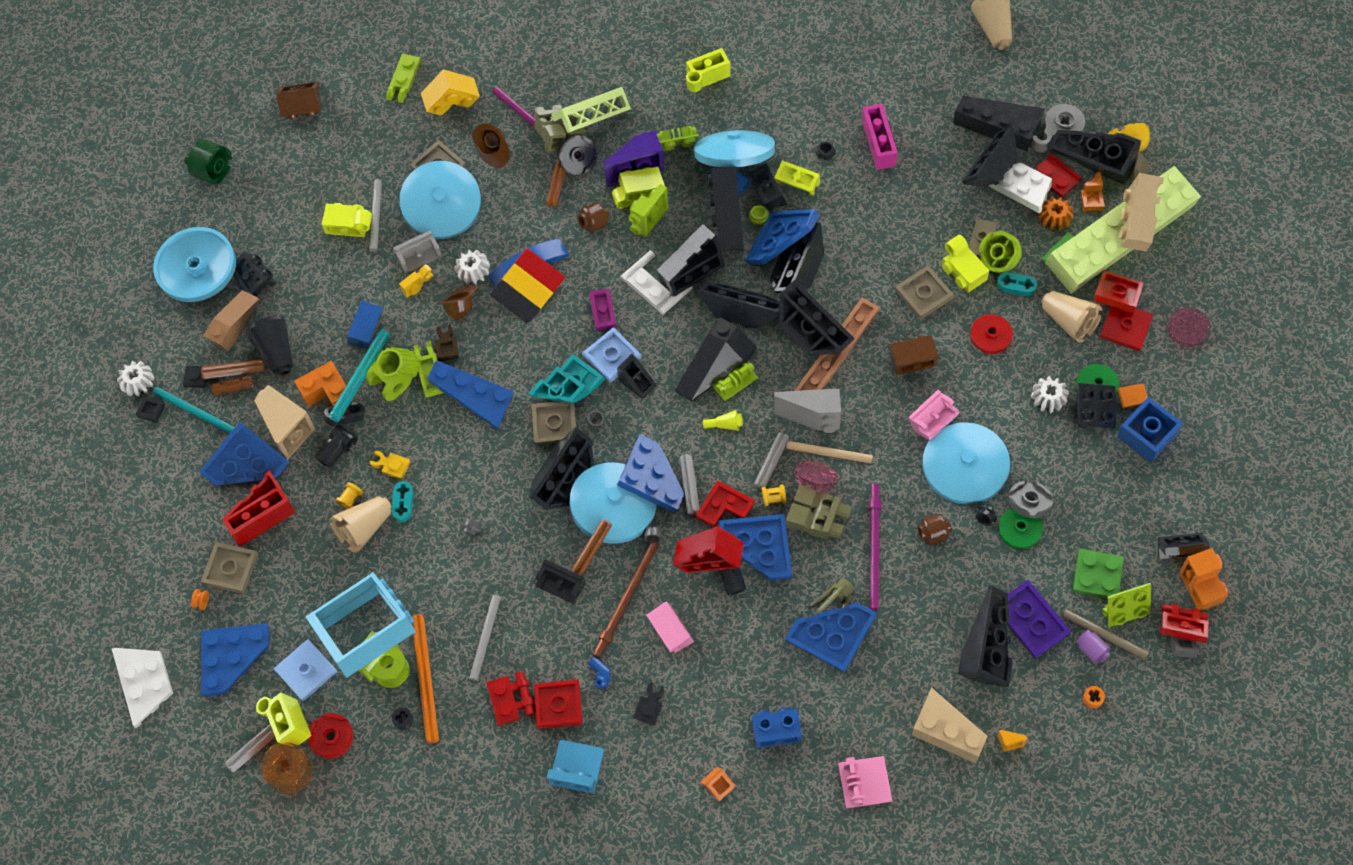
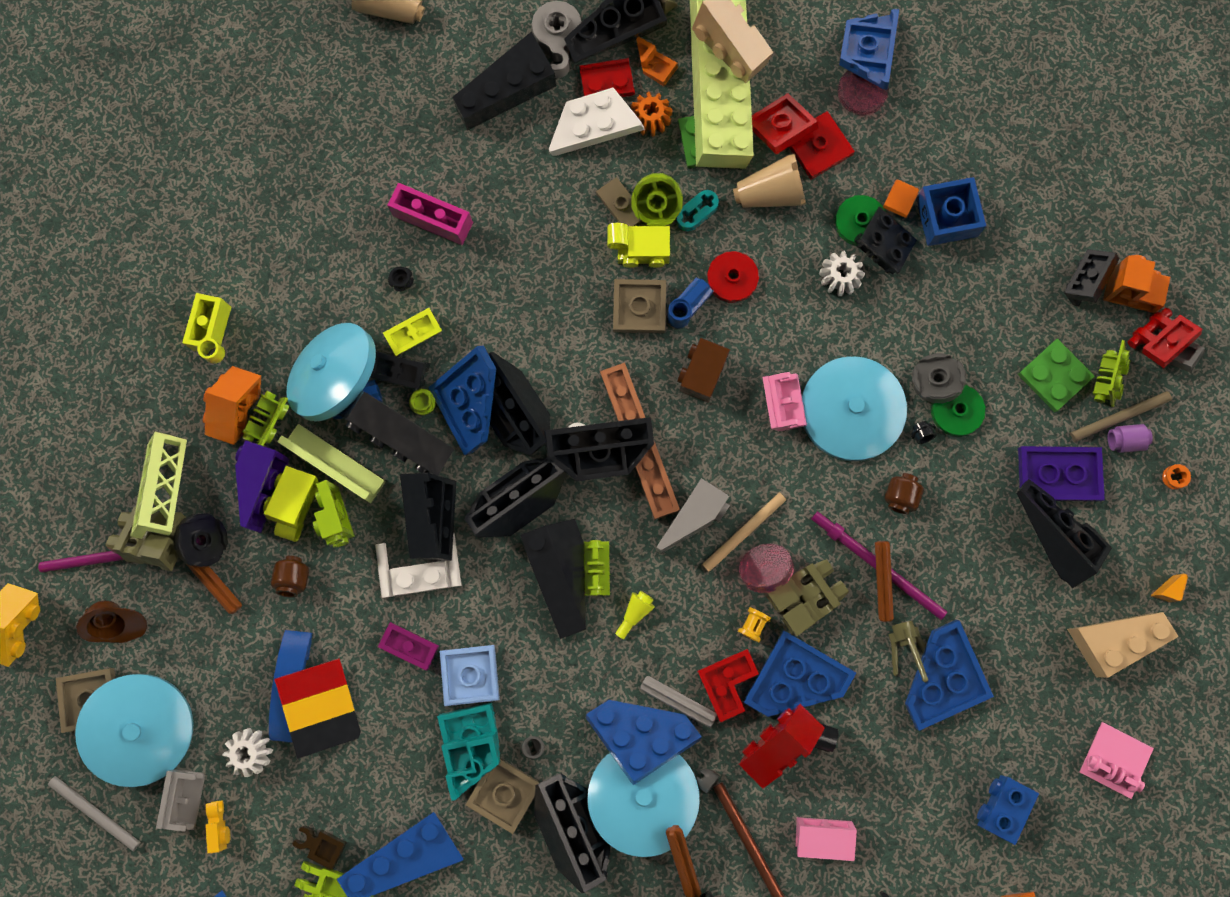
camera: 55 degrees left, 15 degrees up
(346, 220) = (74, 854): neon yellow hinge -> none
(459, 302) = (278, 797): reddish brown piece -> none
(635, 376) = (518, 669): black slope -> none
(671, 111) = (229, 404): none -> orange brick
(680, 194) = (333, 463): none -> yellowish green fence
(771, 461) = (712, 598): light grey axle -> none
(865, 553) = (884, 581): none -> dark orange axle
(951, 318) = (689, 301): none -> blue piece
(994, 160) = (549, 127): black wedge -> none
(1221, 308) = (870, 47): none -> blue wing

